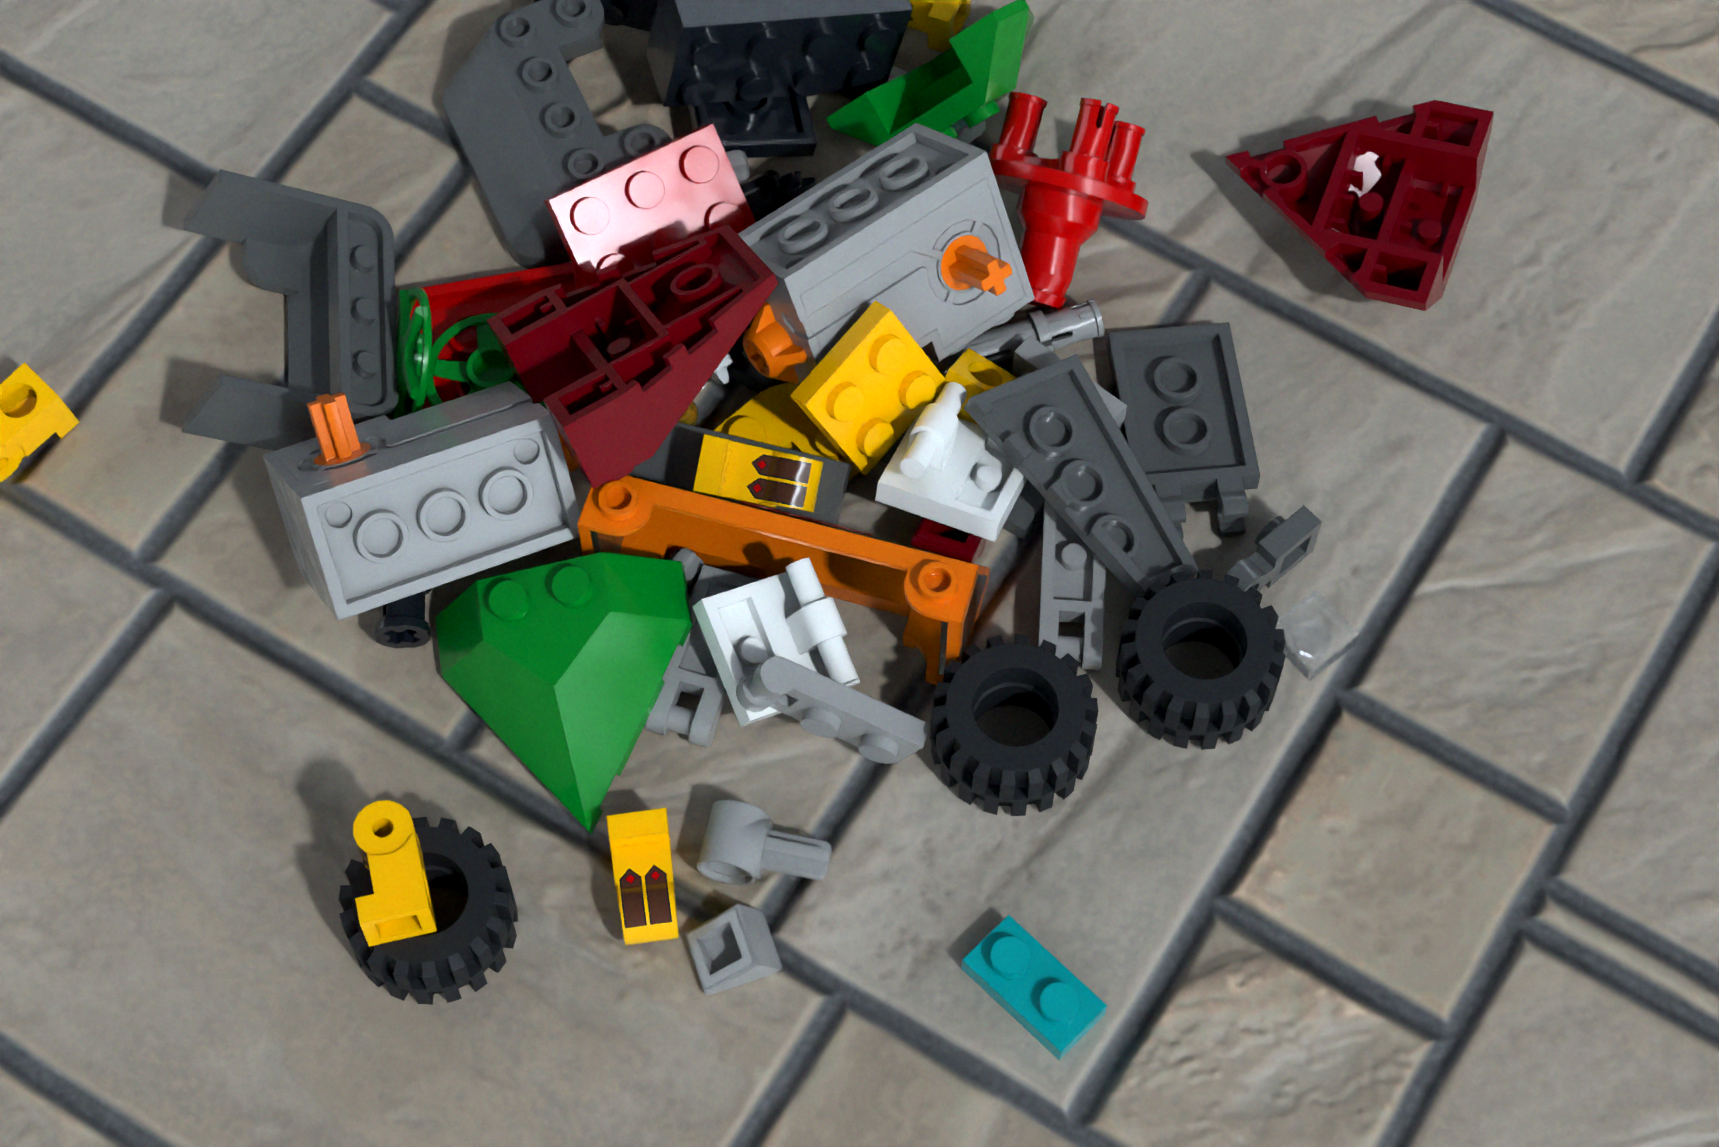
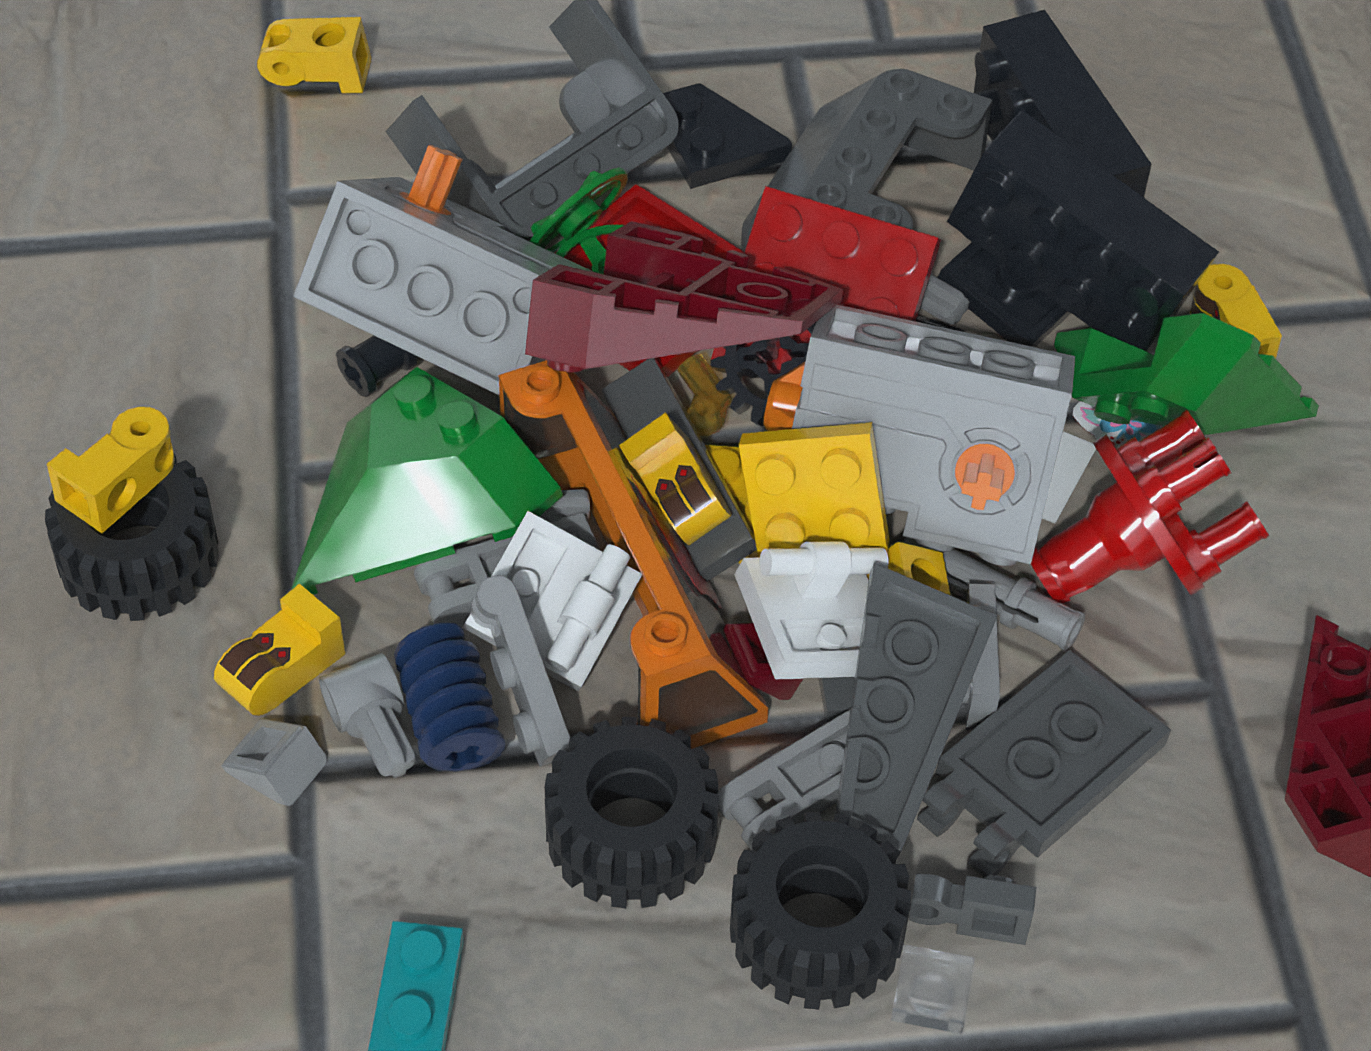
camera: 50 degrees right, 10 degrees down
(404, 190) = (720, 138): none -> black wing
(800, 784) = (448, 699): none -> dark blue piece

